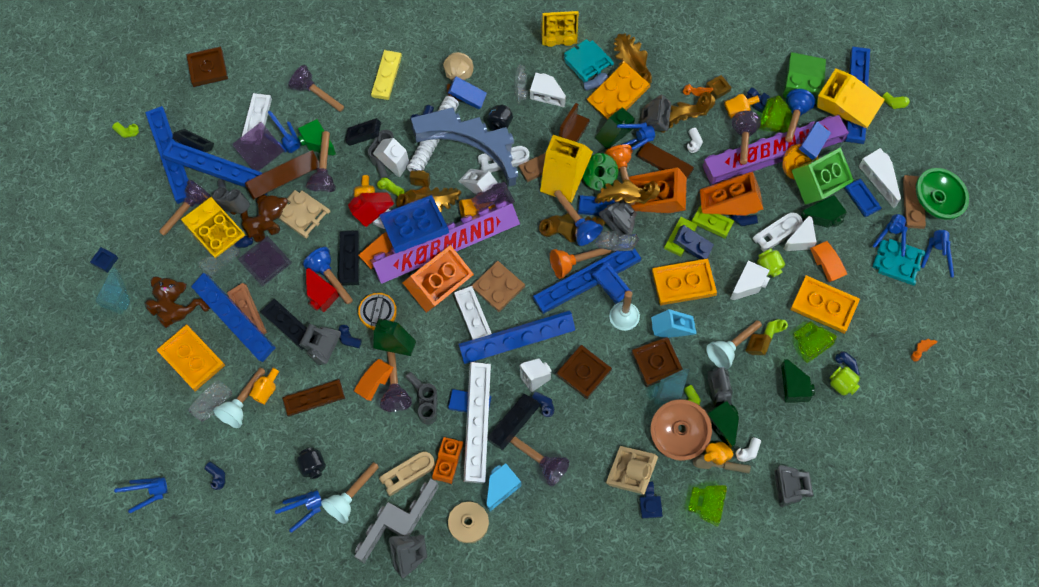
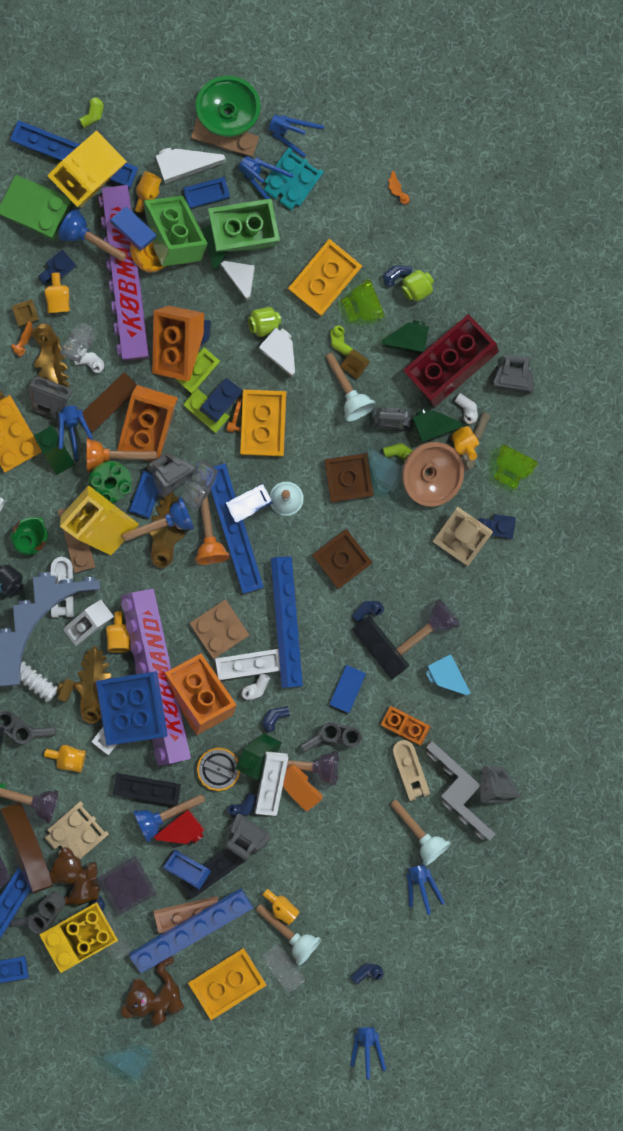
camera: 80 degrees left, 20 degrees up
(104, 260) = (84, 1068): dark blue plate -> none
(194, 195) = (30, 952): piece -> none
(285, 301) = (186, 869): none -> blue tile
(311, 463) = (378, 870): black head -> none
(313, 397) = (303, 856): reddish brown tile -> none
(369, 206) = (92, 753): red slope -> none
(372, 352) = (271, 783): none -> white plate
(381, 244) = (144, 753): orange slope -> none
(388, 185) = (62, 730): lime arm -> none
(392, 155) = (33, 718): white slope -> none
(431, 344) = (272, 716): none -> dark blue arm
(452, 326) = (257, 689): none -> white arm
(472, 532) = (465, 721): tan plate -> none
(477, 423) = (373, 686): white plate -> none
(496, 194) = (113, 604): clear purple plate -> none
(535, 373) = (335, 611): white slope -> none
(540, 124) = (29, 536): none -> green hair
(573, 125) = (42, 497): reddish brown panel -> none
(628, 192) = (146, 458): pearl gold plant -> none
(673, 259) = (232, 425): none -> orange piece
(673, 324) = (311, 448): medium azure slope -> none
(708, 128) = (79, 342): none -> clear slope
(745, 124) = (89, 298): clear purple piece -> none
(774, 115) = (83, 260): clear neon green piece -> none
(778, 231) = (227, 300): white plate -> none
(788, 424) = (451, 360): none -> dark red slope
(829, 260) = (276, 256): orange slope -> none
(846, 225) = (244, 226): none -> bright green slope
(851, 151) = (147, 189): none -> light orange piece

